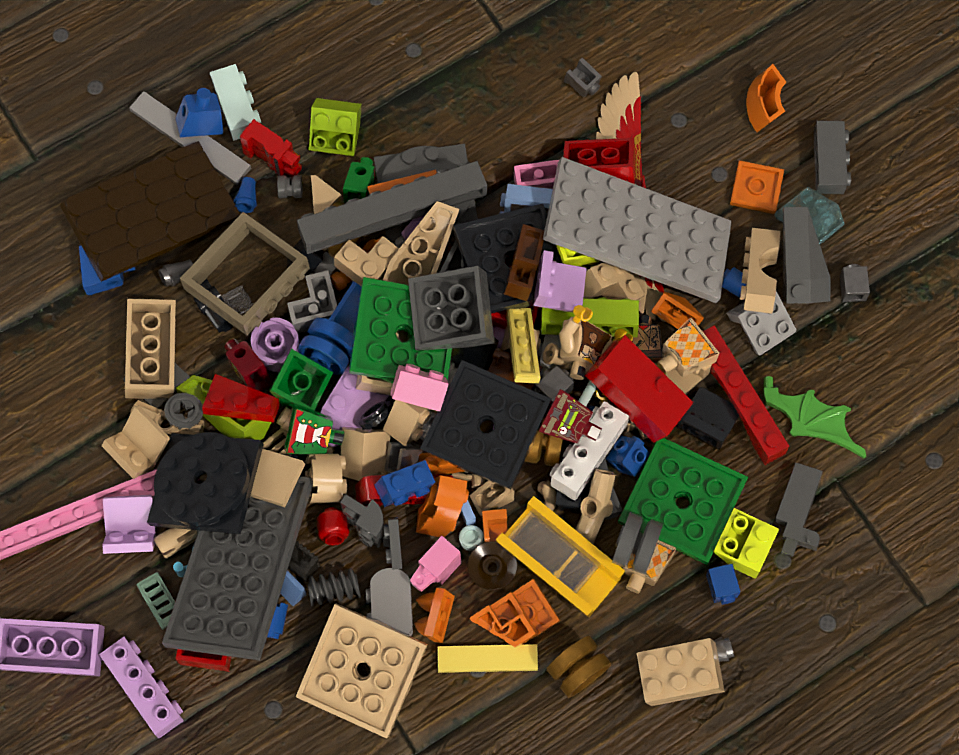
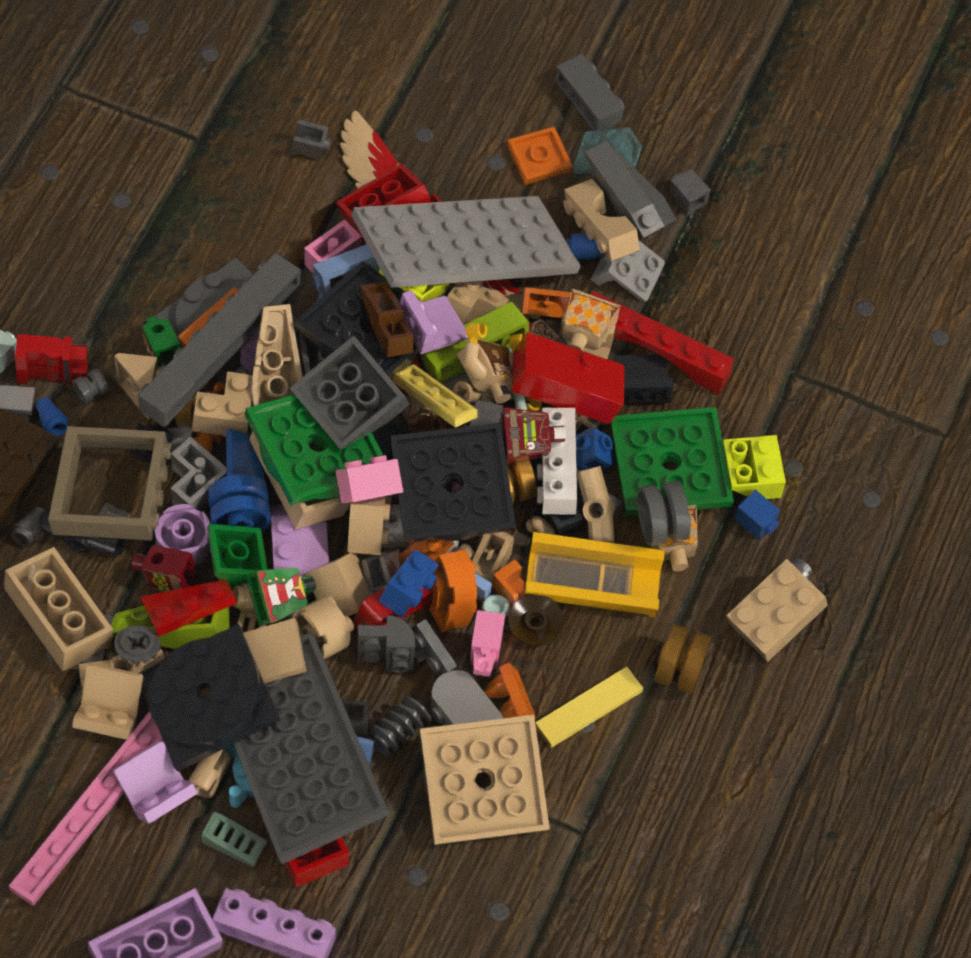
camera: 40 degrees left, 10 degrees down
(332, 526) = (357, 671): red head -> none
(334, 126) = (96, 307): lime slope -> none
(375, 415) = (332, 541): black gear -> none
(518, 615) = (591, 650): orange slope -> none
(764, 98) = (494, 71): orange brick -> none
(796, 507) = (775, 415): dark grey piece -> none
(811, 416) = (732, 328): bright green animal -> none

